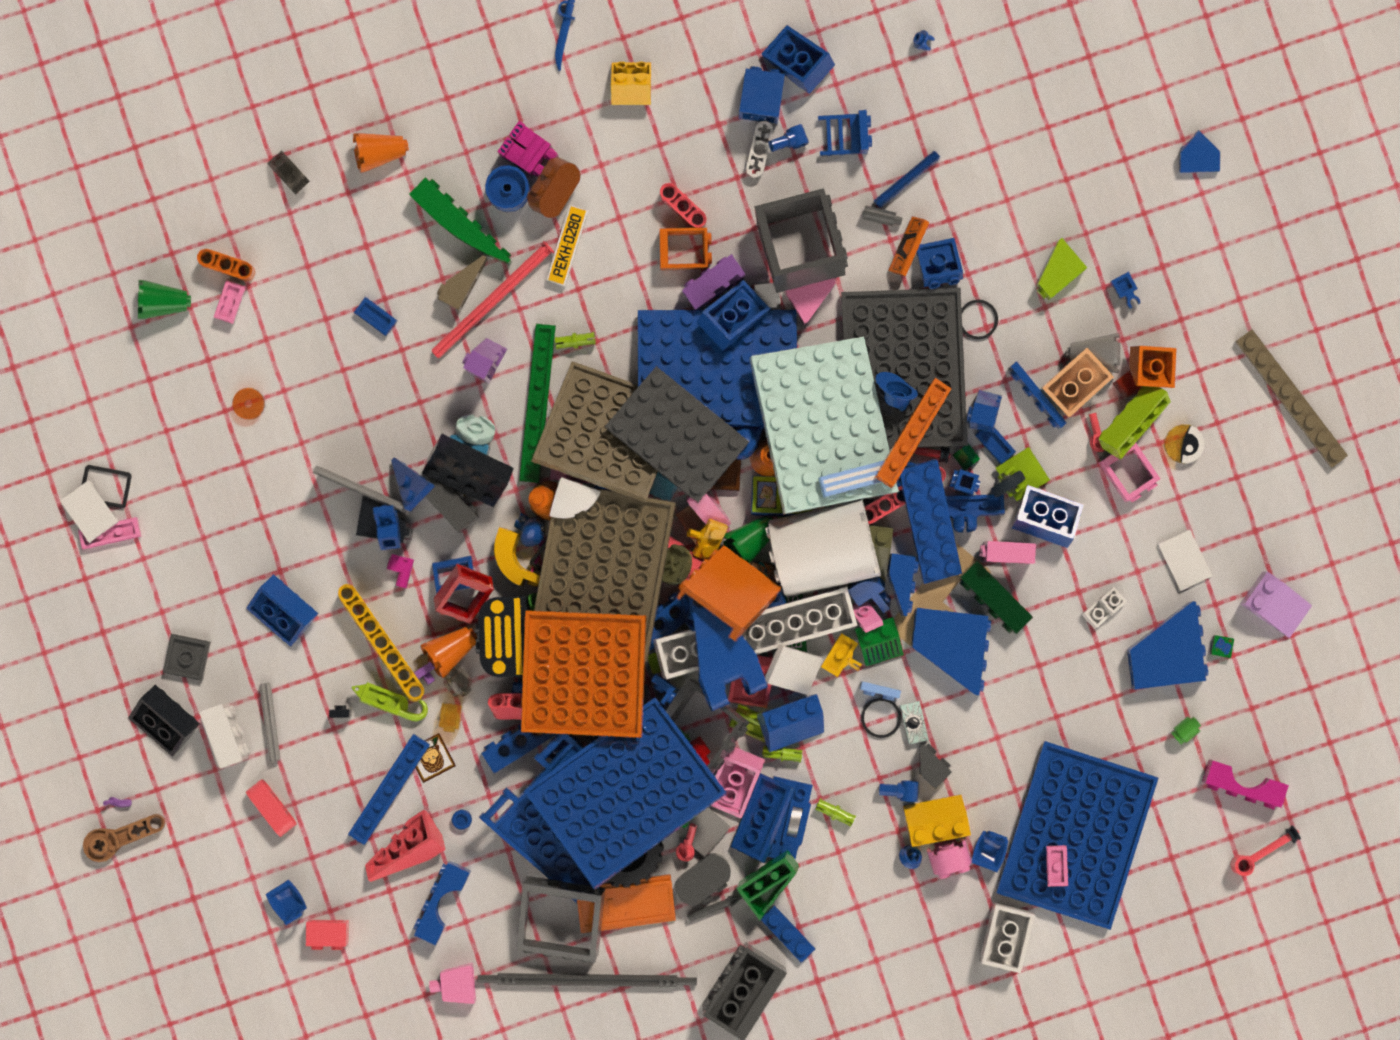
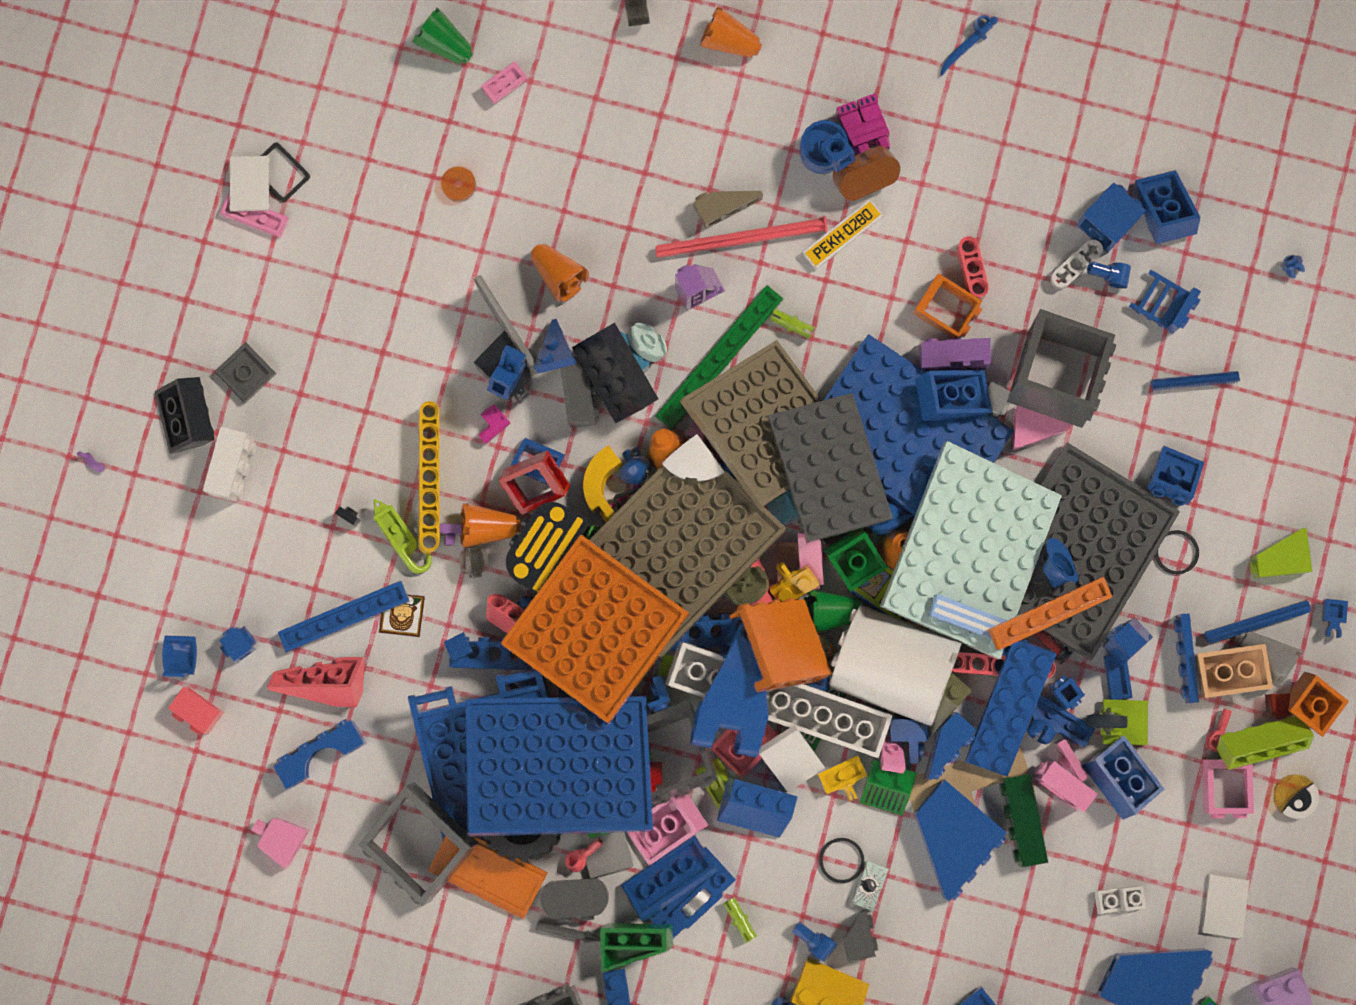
camera: 35 degrees right, 5 degrees down
(116, 838) = (68, 493): medium nougat beam -> none
(219, 258) = (522, 38): orange beam -> none
(269, 722) = (278, 481): light grey axle -> none
(271, 807) = (225, 560): coral beam -> none
(281, 610) = (359, 387): blue slope -> none
(323, 863) = (237, 643): none -> blue brick
(371, 420) = (558, 272): none -> orange cone
(375, 316) = (626, 182): blue tile -> none
(450, 717) = (445, 588): clear yellow brick -> none
(455, 220) = (757, 145): green slope -> none
(461, 819) = (390, 690): blue tile -> none
(490, 754) = (458, 647): none -> blue slope
(527, 193) = (840, 159): none -> blue brick
(587, 980) = (404, 919): dark grey axle -> none
(631, 83) = (998, 128): yellow slope -> none
(741, 488) = (855, 558): none -> green slope
(783, 754) = (728, 832): lime axle -> none
(881, 216) = (1149, 398): dark grey cylinder -> none
(888, 693) = (864, 840): light blue plate -> none
(908, 246) = (1157, 442): orange tile -> none
(966, 457) = (1082, 671): green slope -> none
(1001, 531) = (1069, 760): none -> bright pink plate
(1071, 332) = (1257, 621): none -> blue axle

